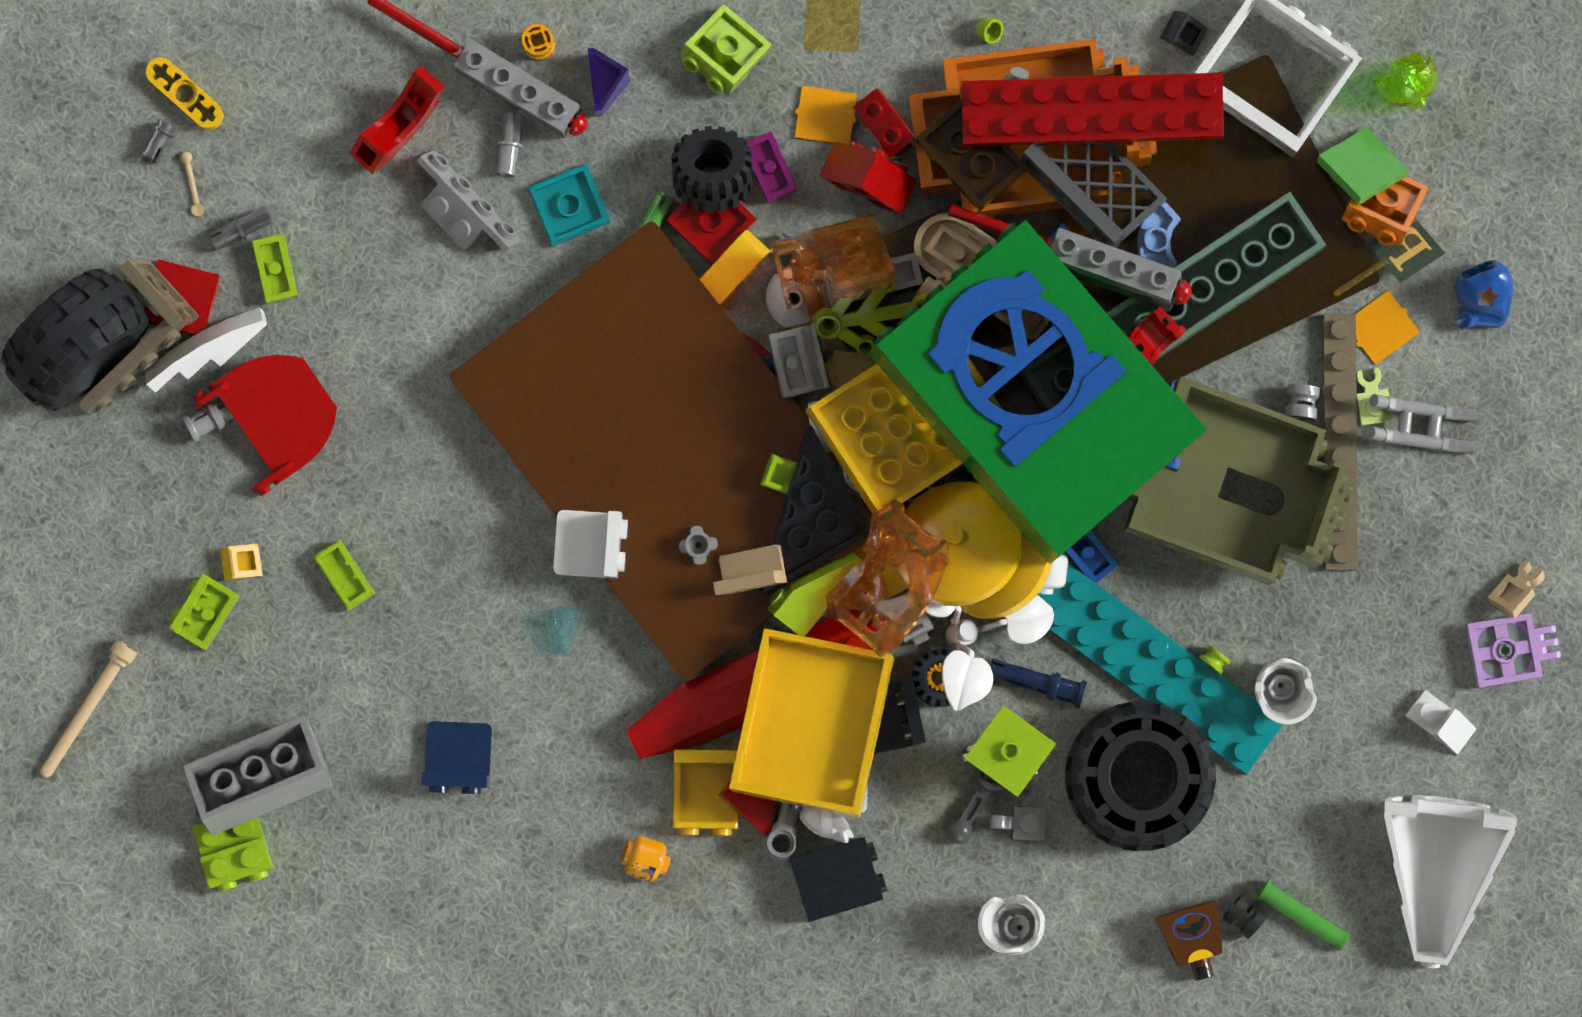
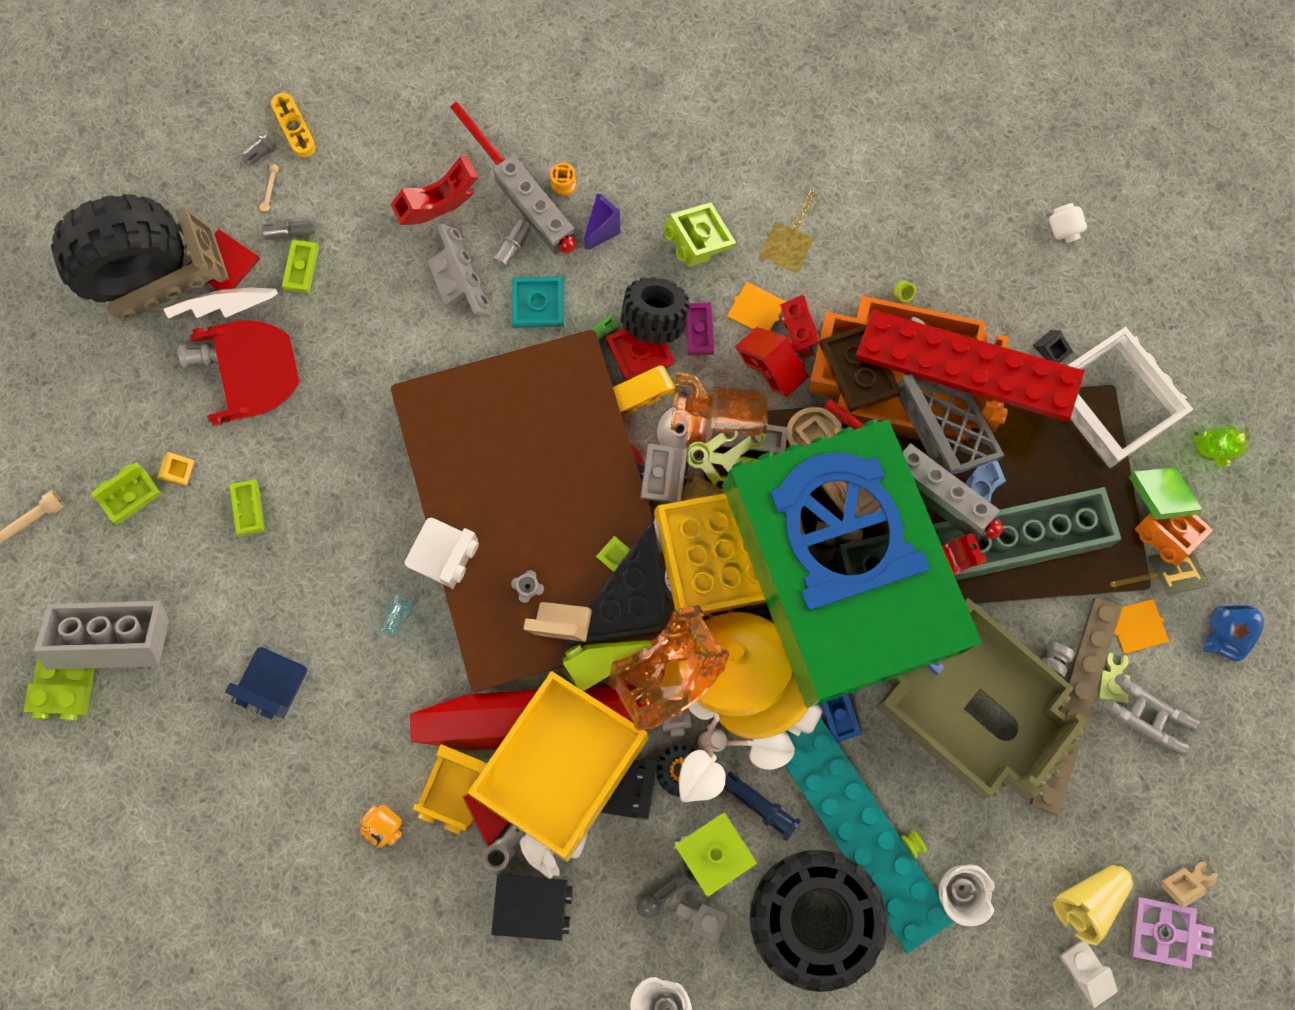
camera: 20 degrees right, 10 degrees down
(1422, 647) = (1094, 903): none -> light yellow cone

